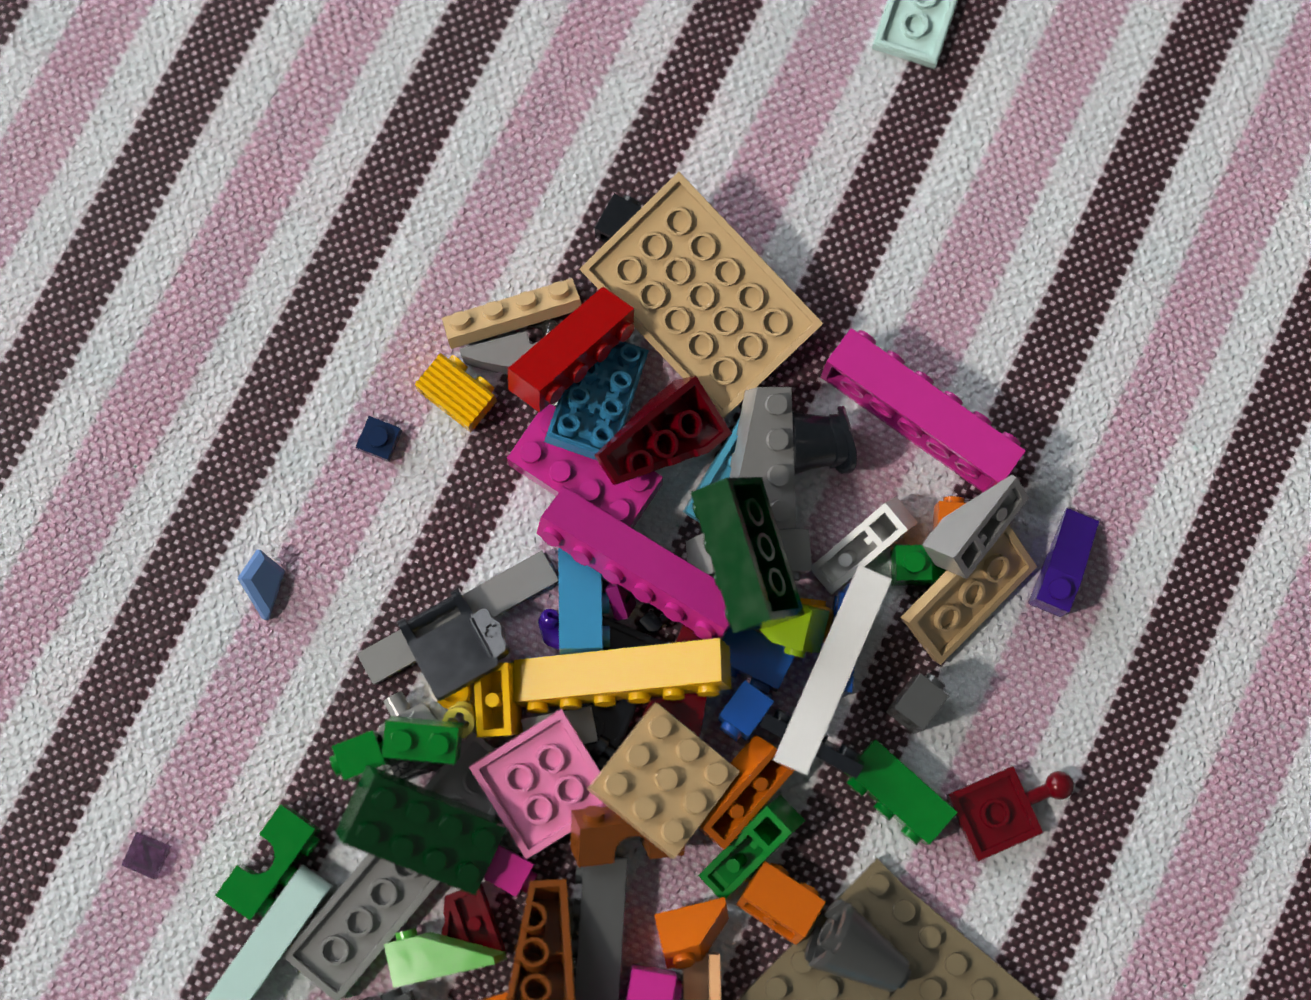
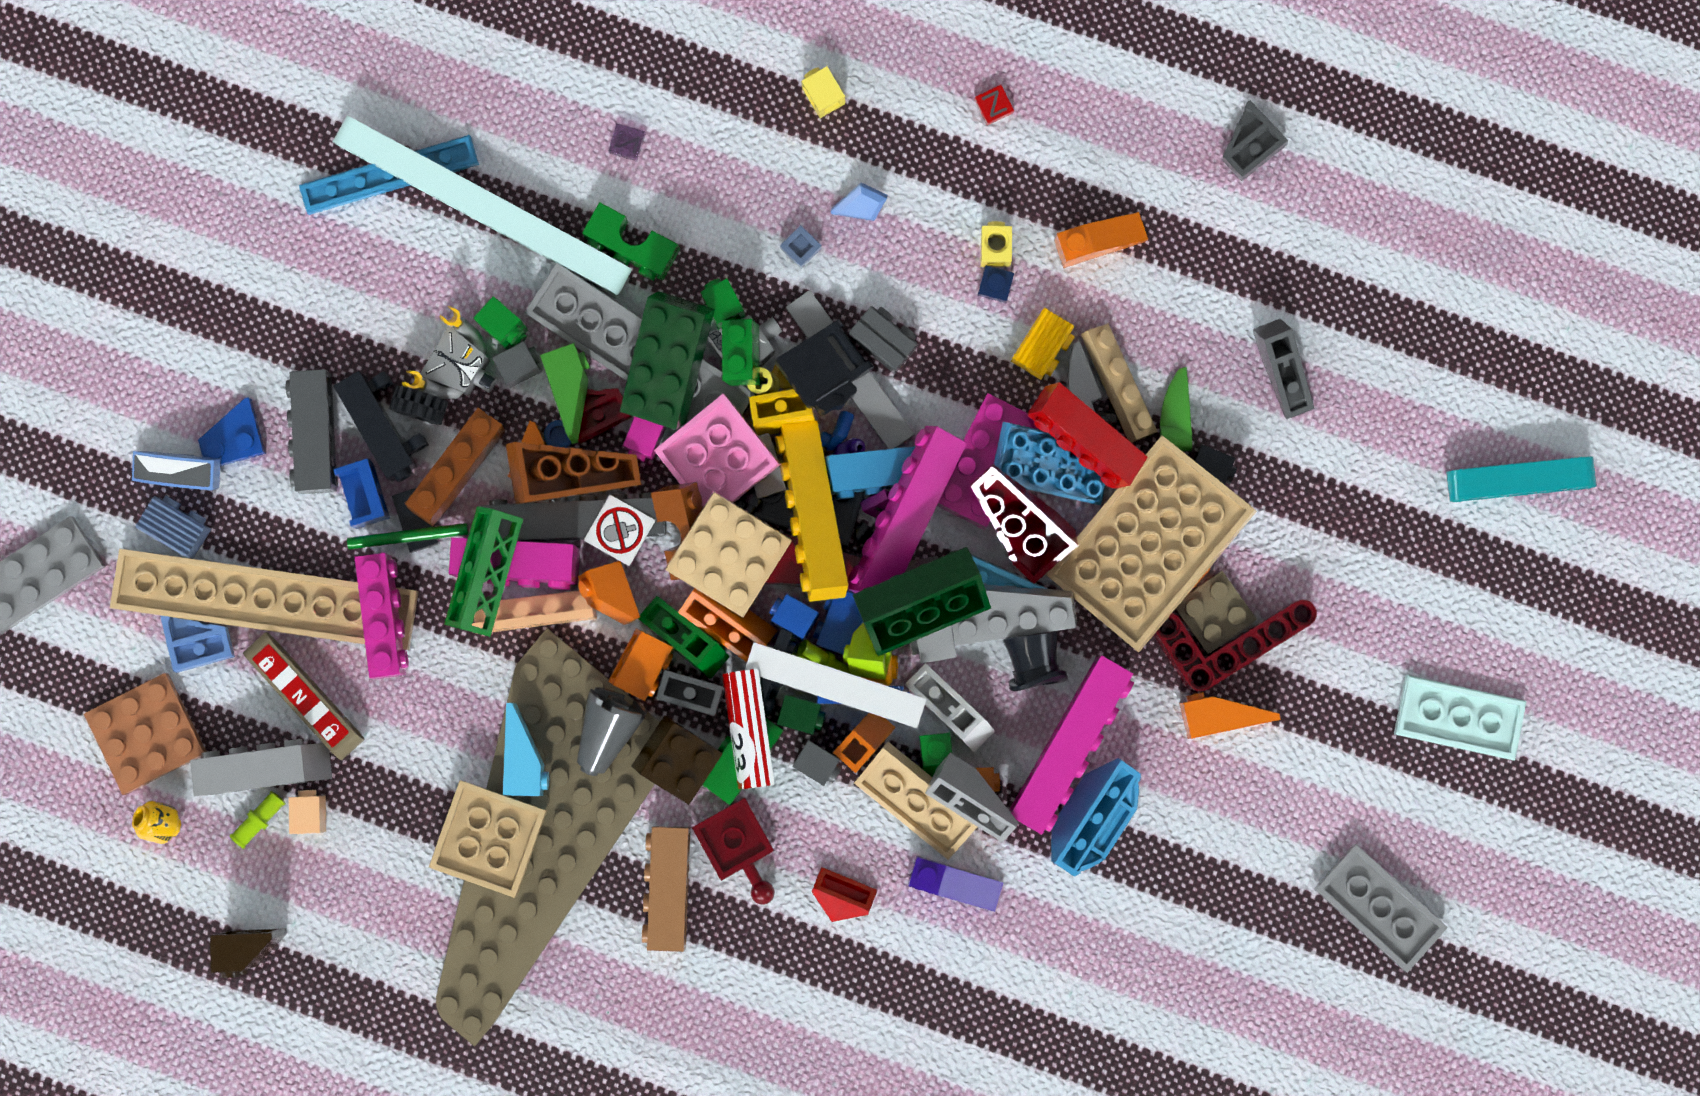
camera: 90 degrees right, 5 degrees up
(121, 612) = (822, 91): none -> light yellow brick
(168, 417) = (994, 105): none -> red tile
(256, 135) = (1252, 142): none -> dark grey wing
(303, 658) = (800, 247): none -> sand blue plate
(342, 316) = (1099, 238): none -> orange slope
(344, 442) = (993, 257): none -> light yellow brick
(426, 572) = (883, 338): none -> dark grey brick
(493, 978) = (555, 435): none -> blue tile
(515, 131) = (1284, 367): none -> dark grey slope
(530, 636) = (840, 432): none -> blue arm
(553, 254) = (1175, 413): none -> bright green piece
(618, 911) = (619, 530): none -> sticker
(785, 238) = (1215, 612): none -> dark tan plate
(795, 683) = (813, 653): none -> lime pin
(821, 845) = (690, 693): none -> dark grey brick
(825, 223) = (1233, 649): none -> dark red beam
(860, 716) = (801, 715): none -> dark green brick
(875, 778) = (748, 729): none -> sticker
(897, 648) = (864, 741): none -> orange slope
(900, 256) = (1216, 715): none -> orange slope
(900, 870) = (676, 760): none -> dark brown brick
(1003, 394) = (1095, 816): none -> dark azure wedge
(1047, 897) = (667, 888): none -> medium nougat brick
(1069, 691) = (842, 896): none -> red slope
(1125, 103) = (1380, 908): none -> light grey plate

